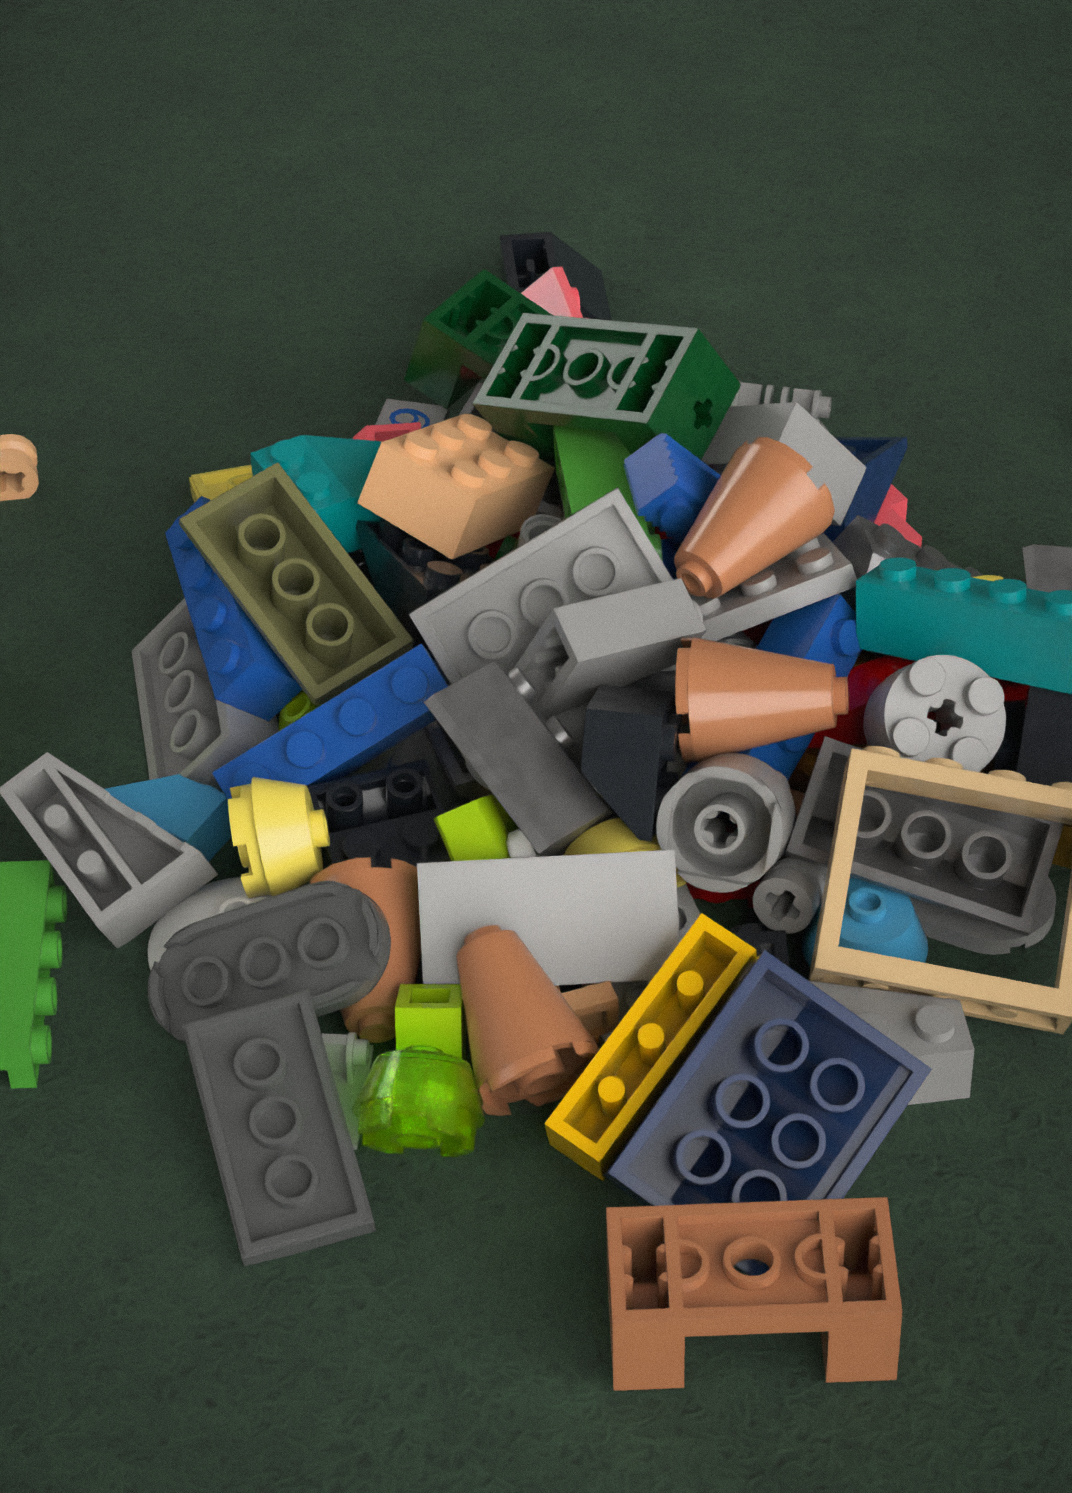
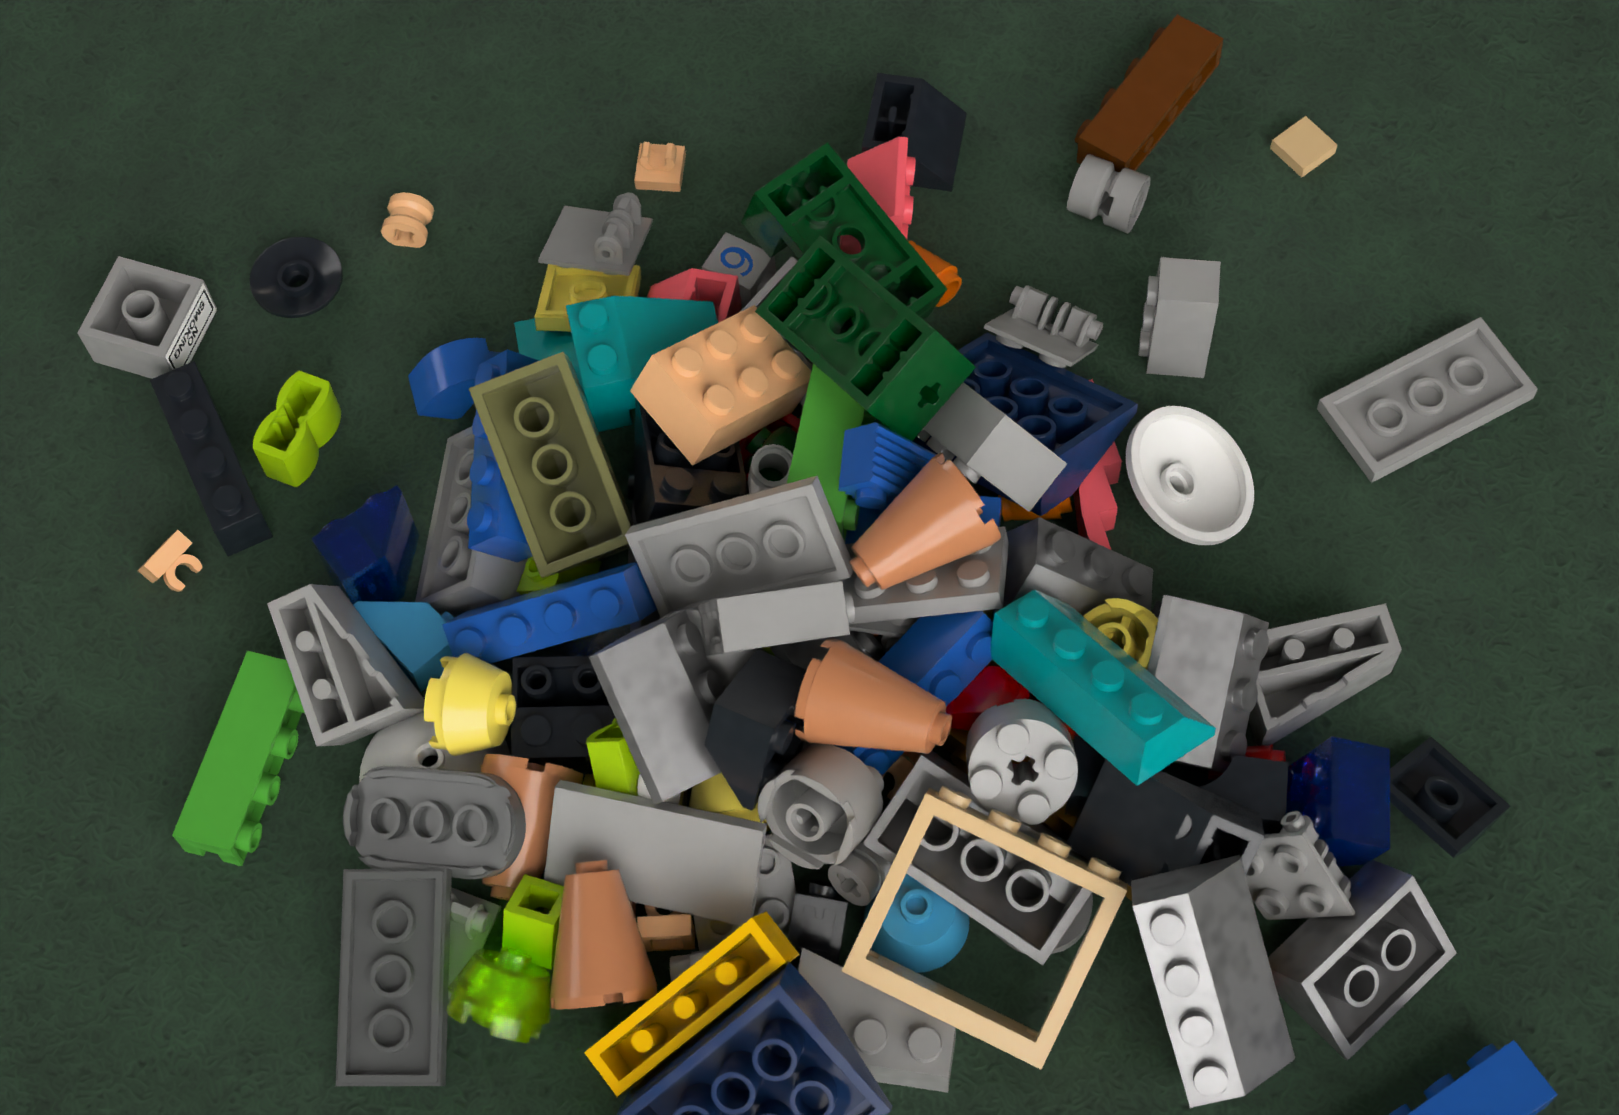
camera: 20 degrees right, 20 degrees up
(89, 727) = (371, 548): none -> clear blue slope
(126, 581) = (444, 377): none -> blue brick
(215, 447) = (598, 238): none -> light grey hinge
(281, 375) = (660, 167): none -> light nougat tile
(767, 300) = (1108, 193): none -> light grey wheel
(790, 224) = (1151, 95): none -> reddish brown brick
(916, 360) = (1180, 316): none -> light grey wedge
(967, 235) = (1303, 146): none -> tan tile
(981, 499) = (1189, 475): none -> white dish

